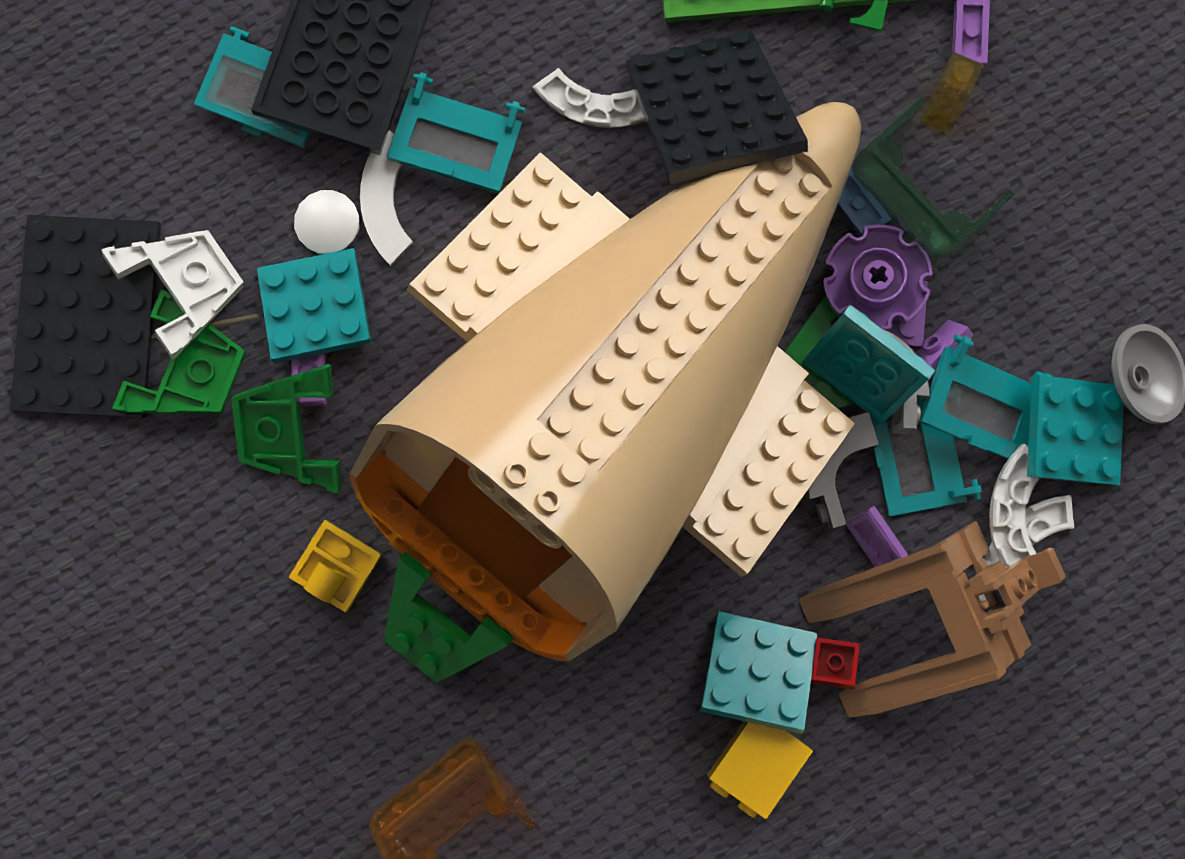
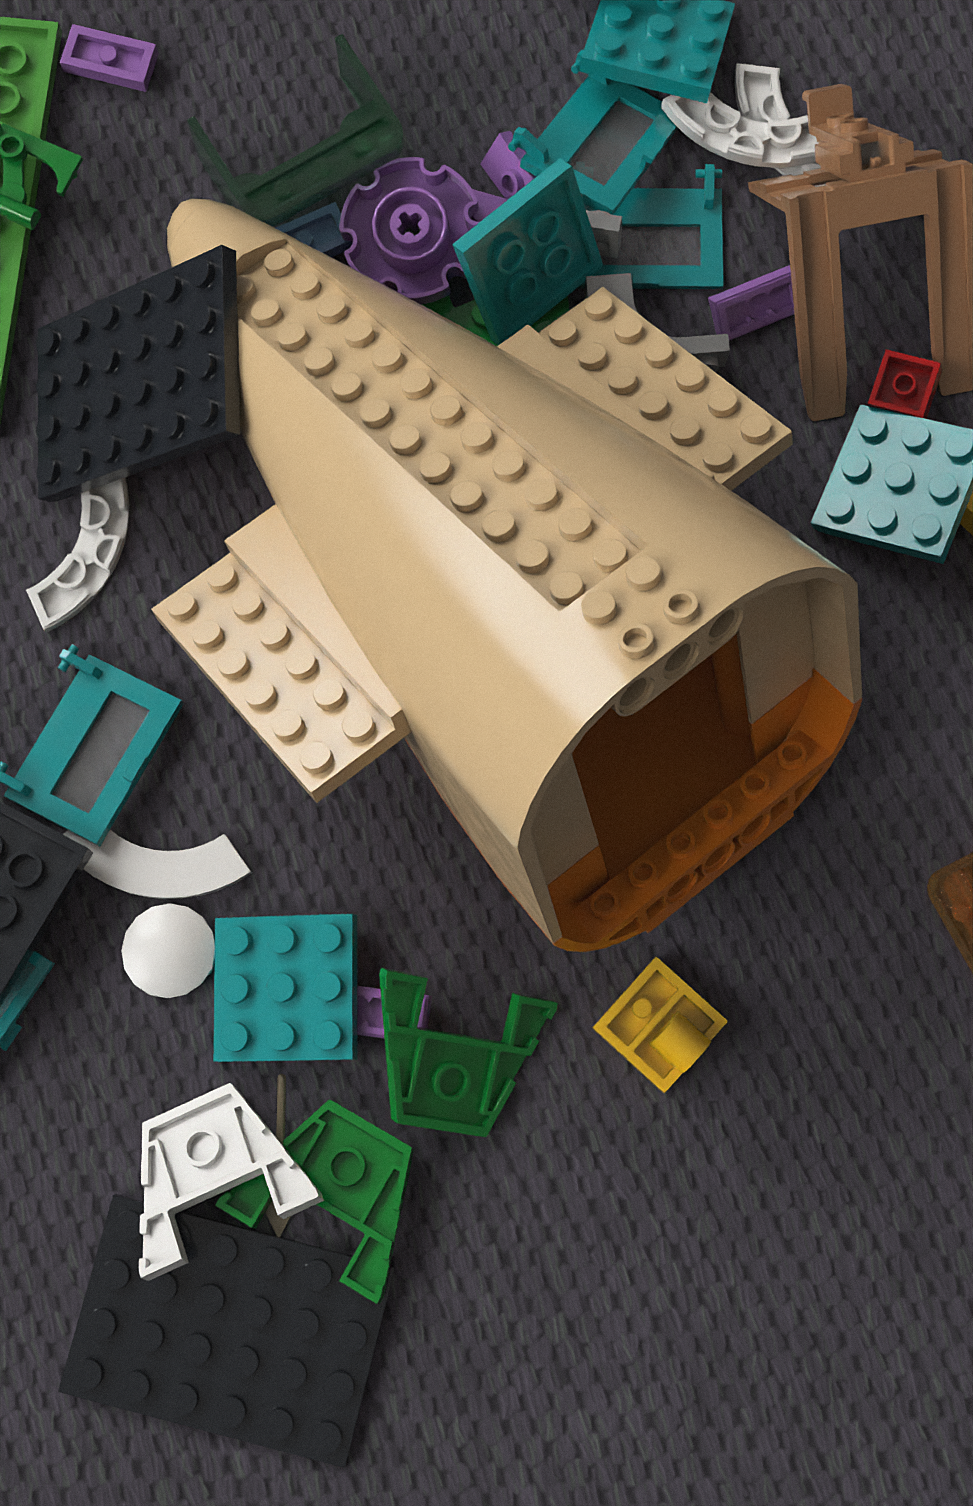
camera: 80 degrees left, 5 degrees down
(429, 636) = (783, 906): green wing -> none
(951, 92) = (181, 91): clear yellow slope -> none

